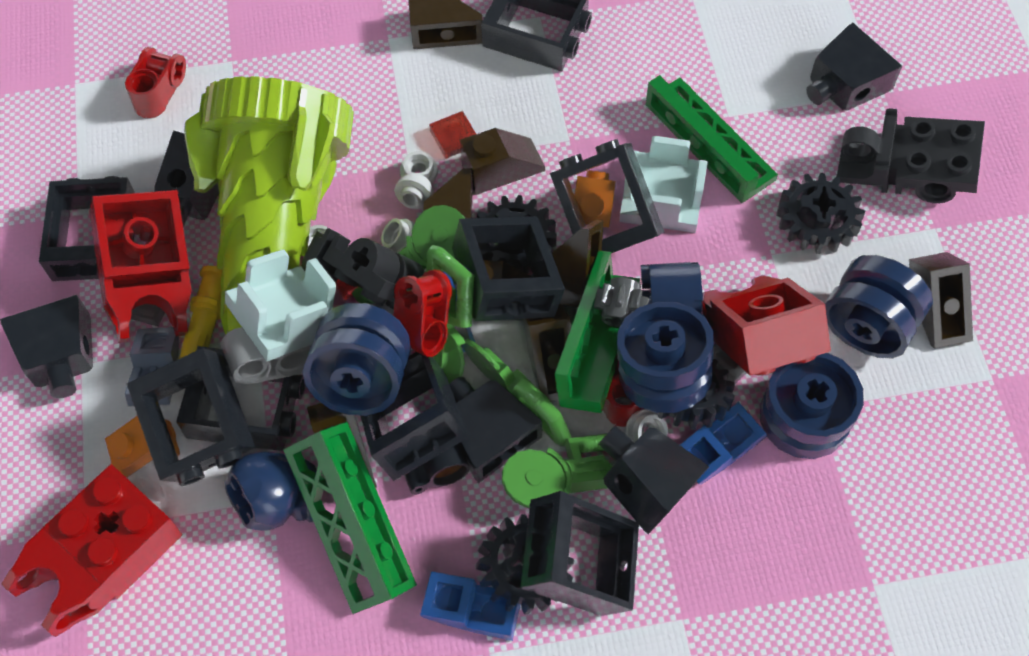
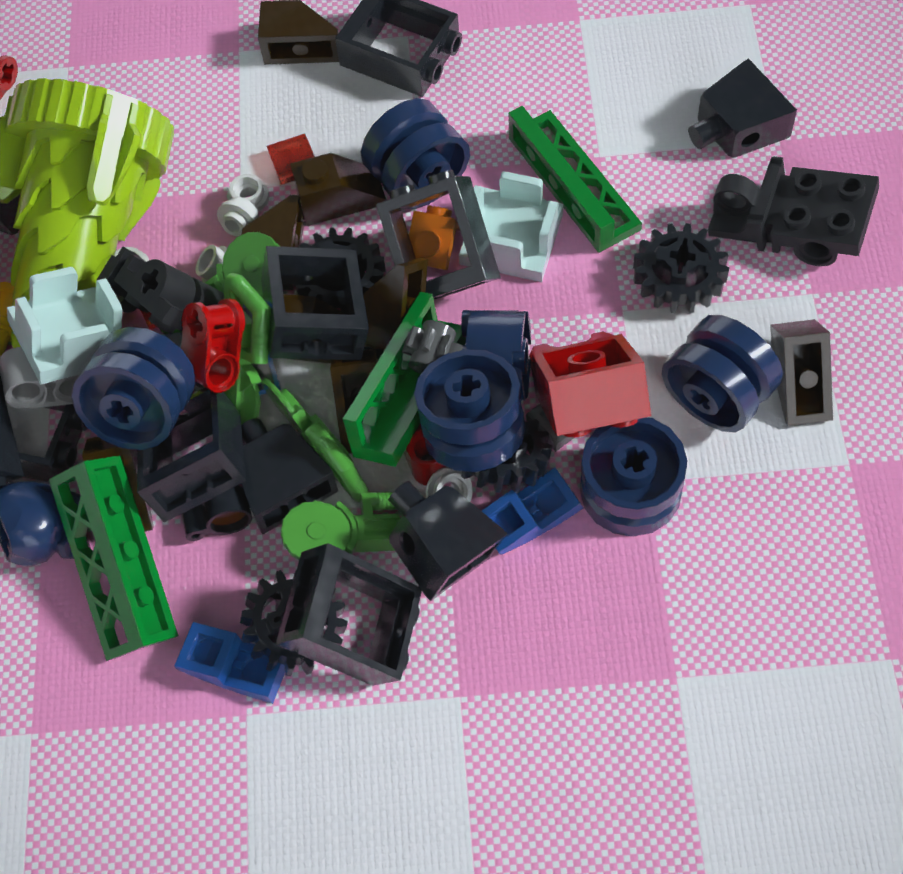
camera: 10 degrees right, 0 degrees up
(570, 120) = (413, 145): none -> dark blue wheel

